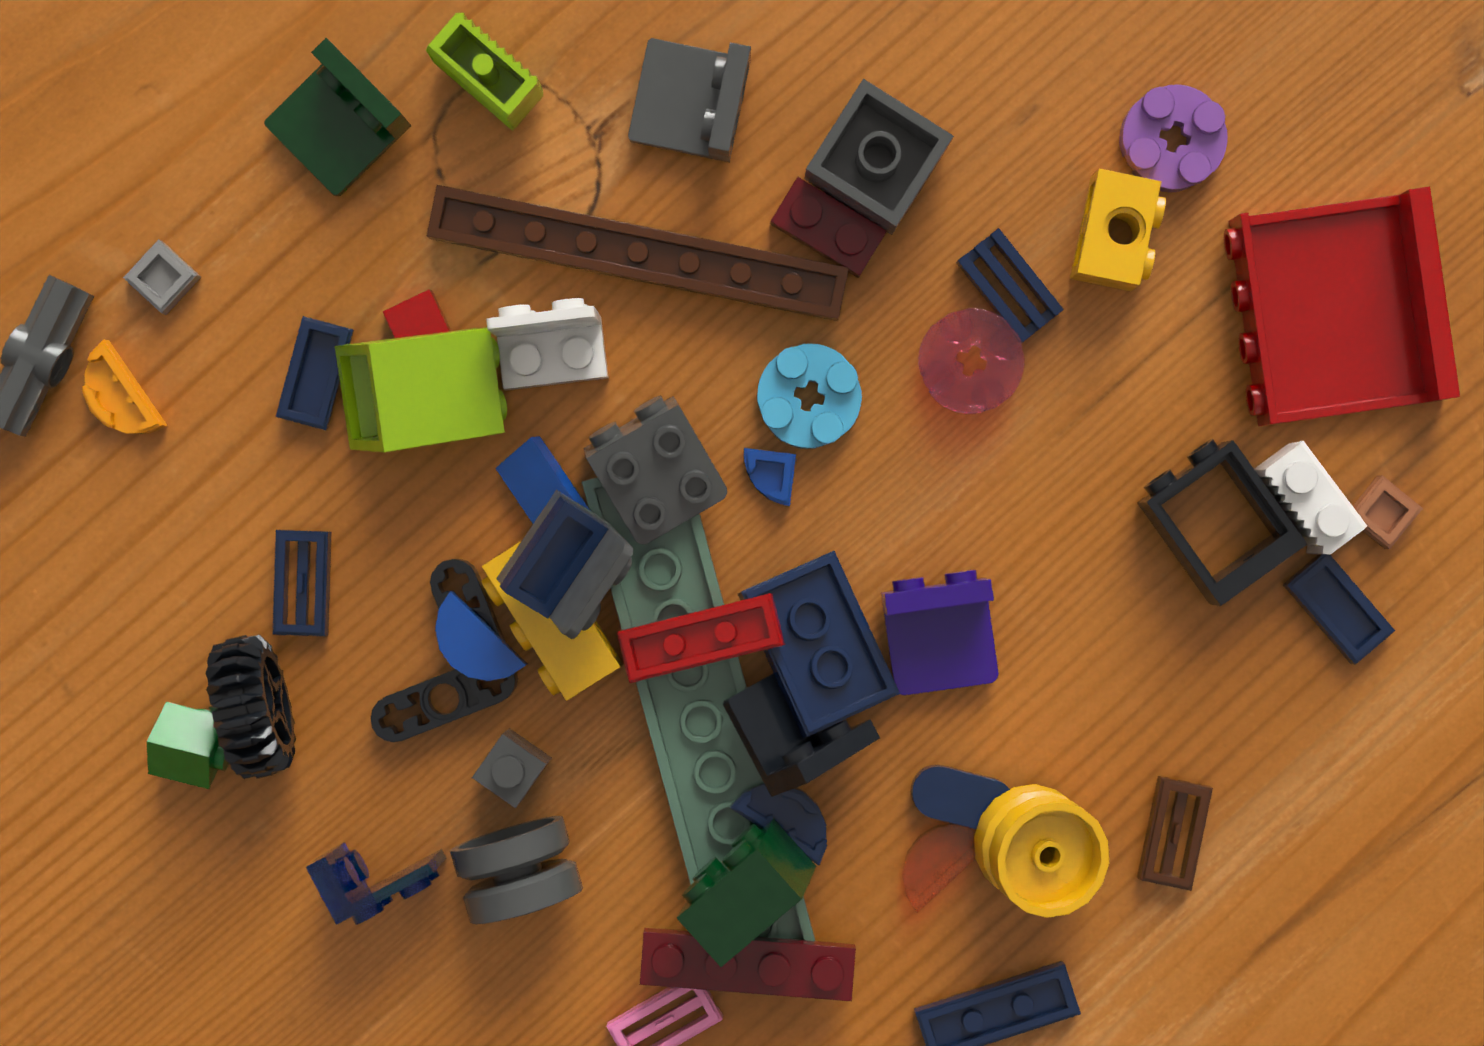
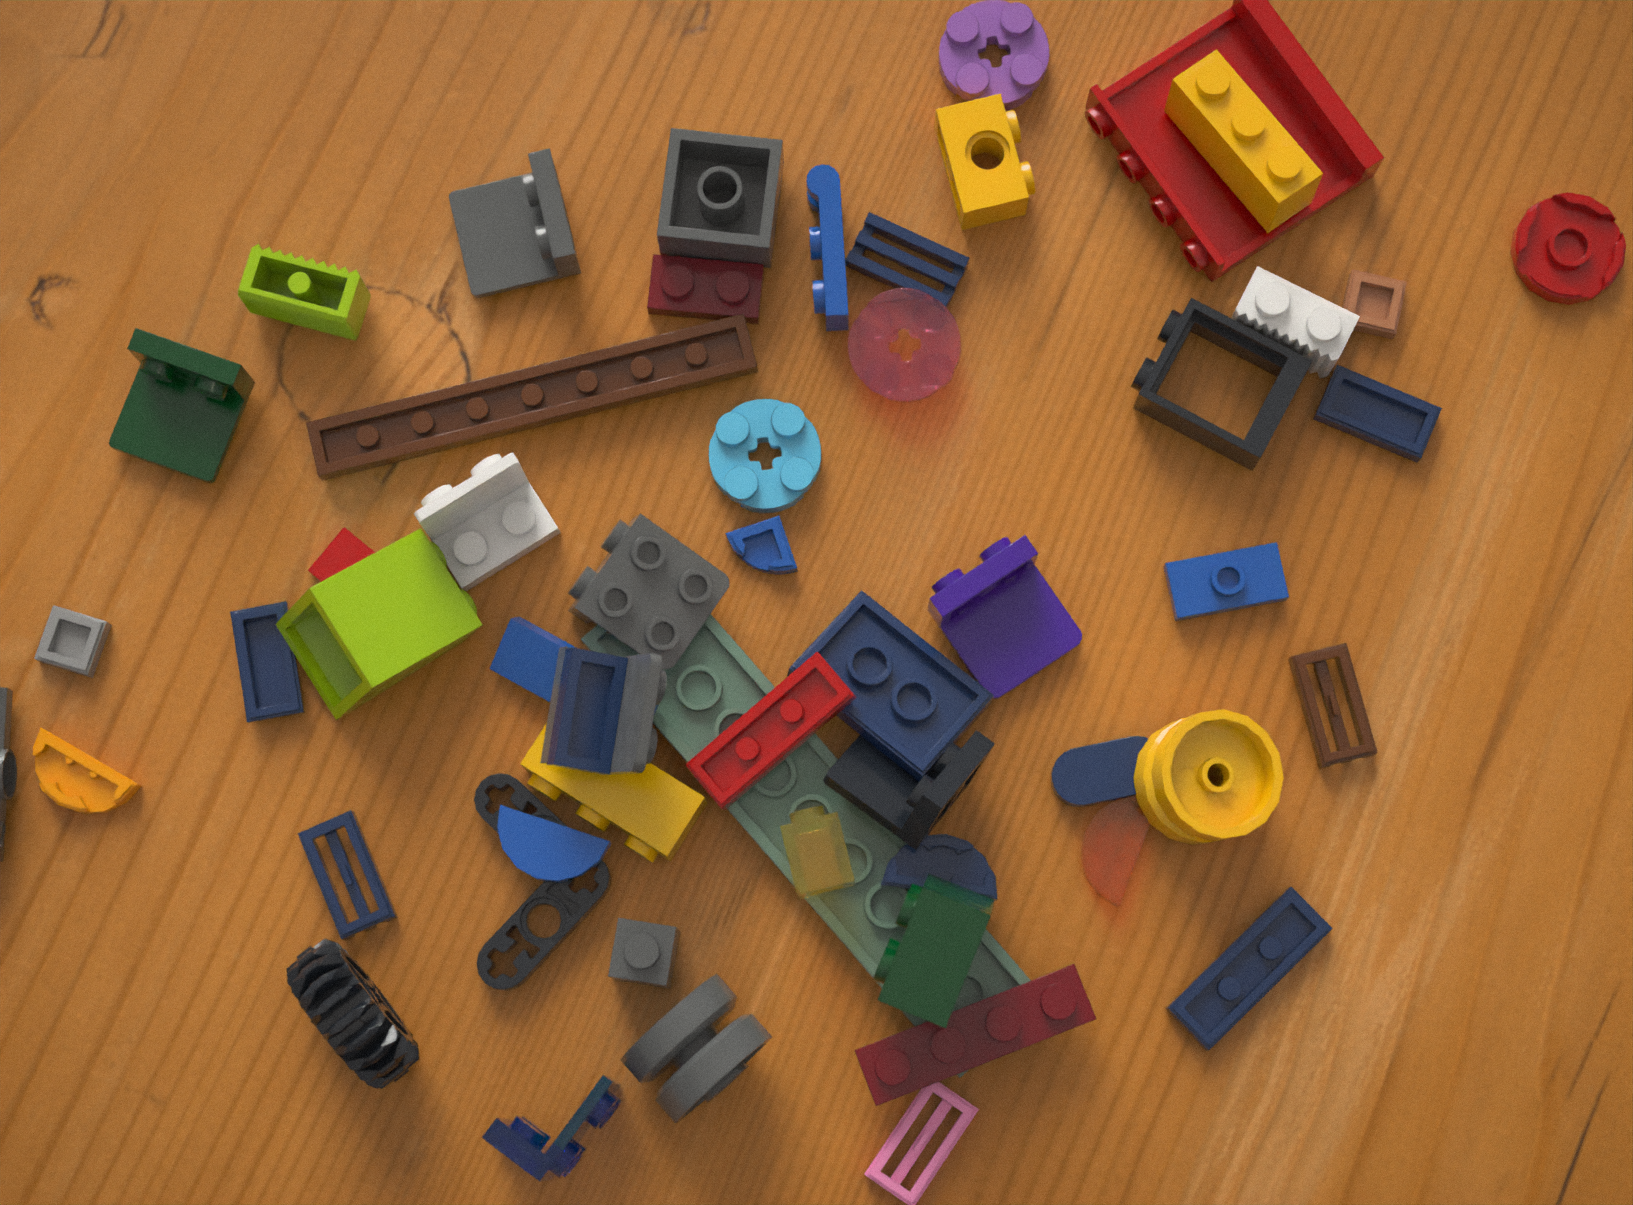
camera: 25 degrees left, 10 degrees down
(185, 746) = (306, 1089): green brick -> none
(689, 758) = (816, 852): none -> clear yellow brick
(949, 242) = (828, 245): none -> blue plate
(1139, 688) = (1226, 581): none -> blue plate
(1347, 323) = (1242, 141): none -> yellow brick

